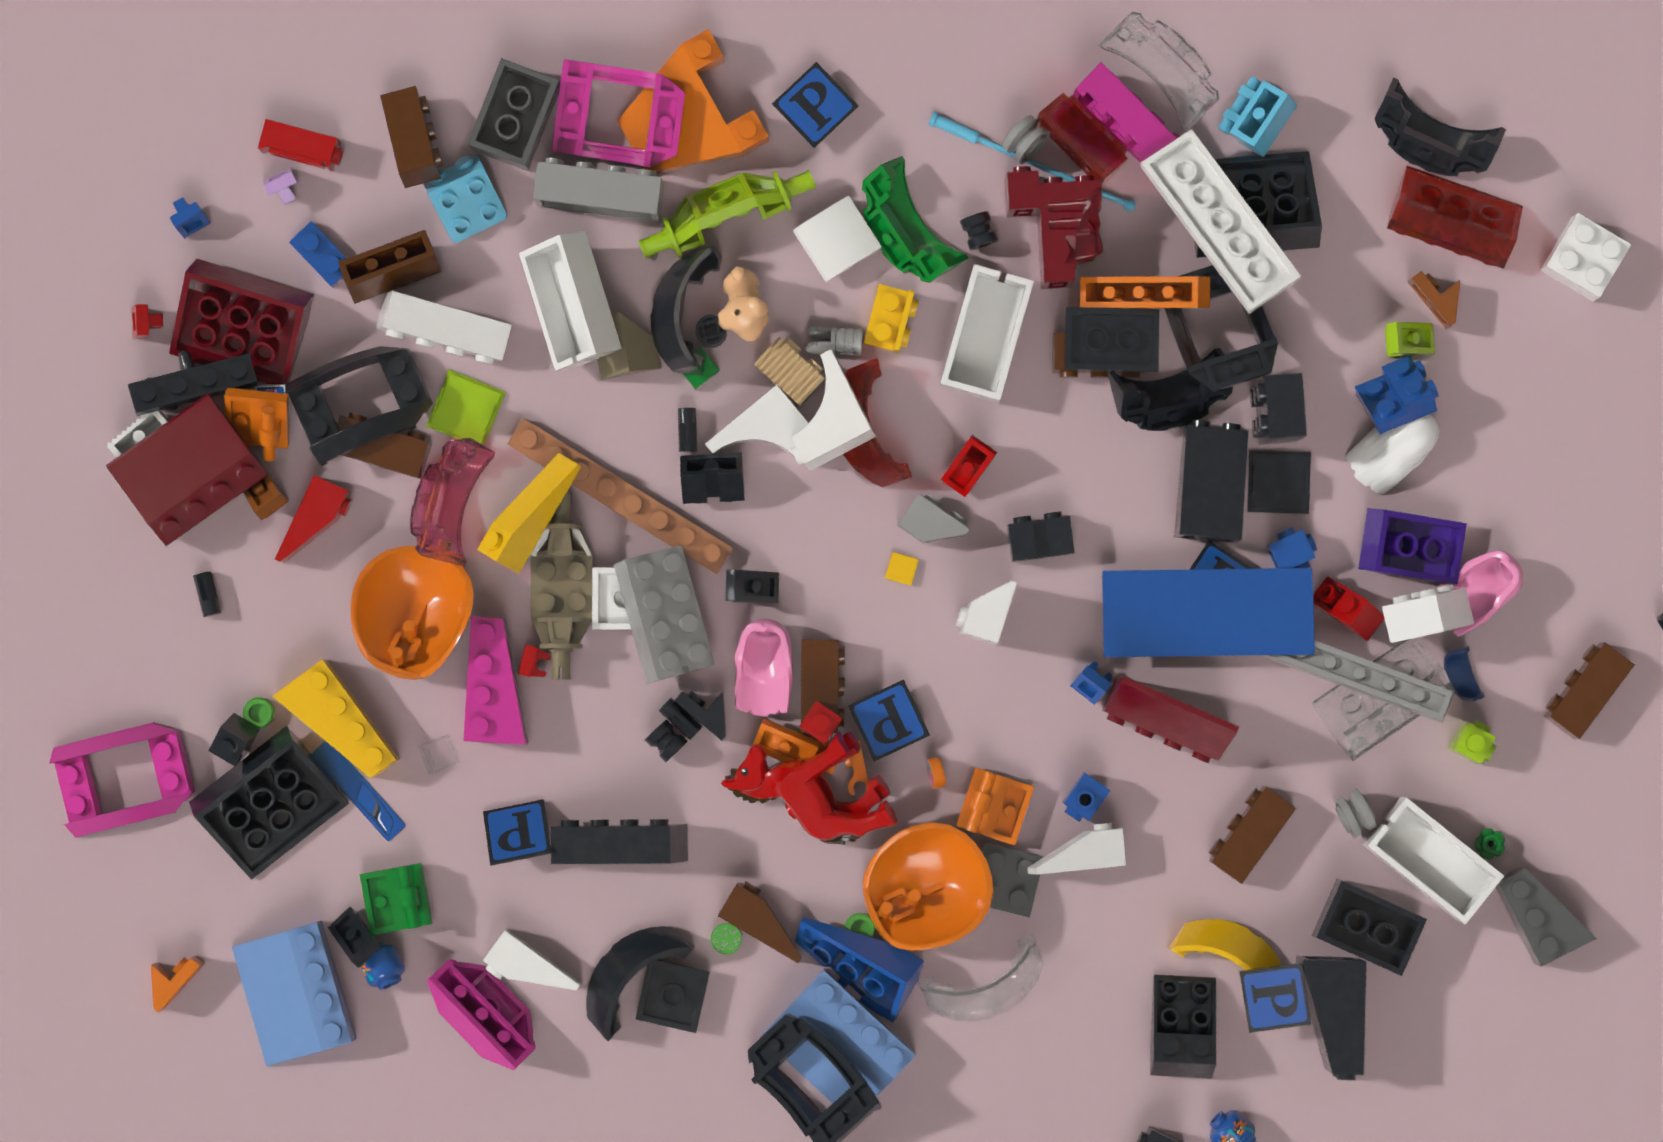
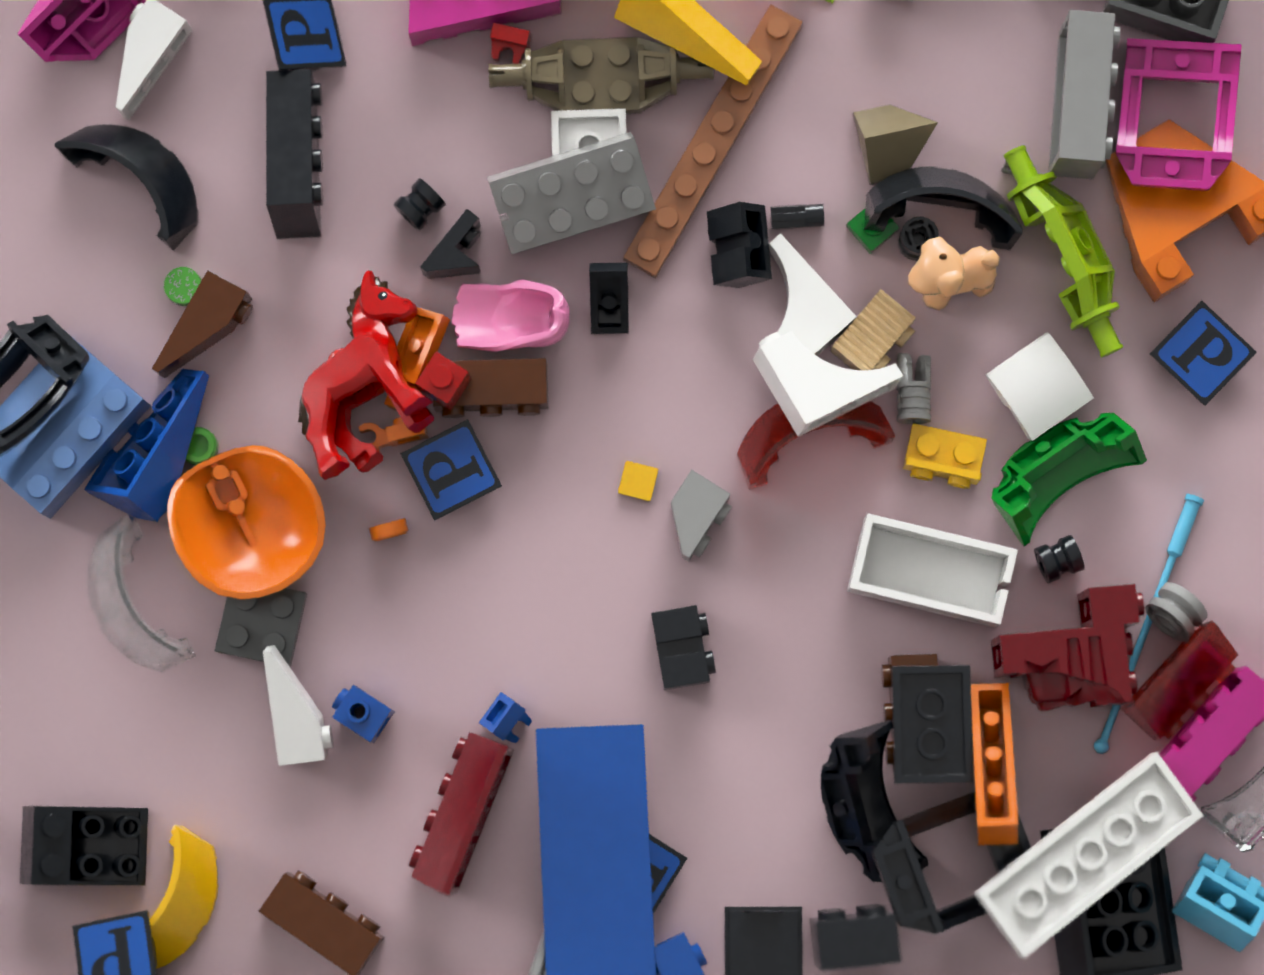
camera: 90 degrees right, 5 degrees down
(570, 300) = (948, 65): white piece -> none
(672, 995) = (113, 225): black plate -> none
(680, 718) = (445, 220): black piece -> none
(968, 466) = (767, 555): red slope -> none
(986, 615) = (581, 580): white slope -> none
(995, 806) = (349, 603): orange plate -> none
(1212, 482) = (759, 858): black slope -> none

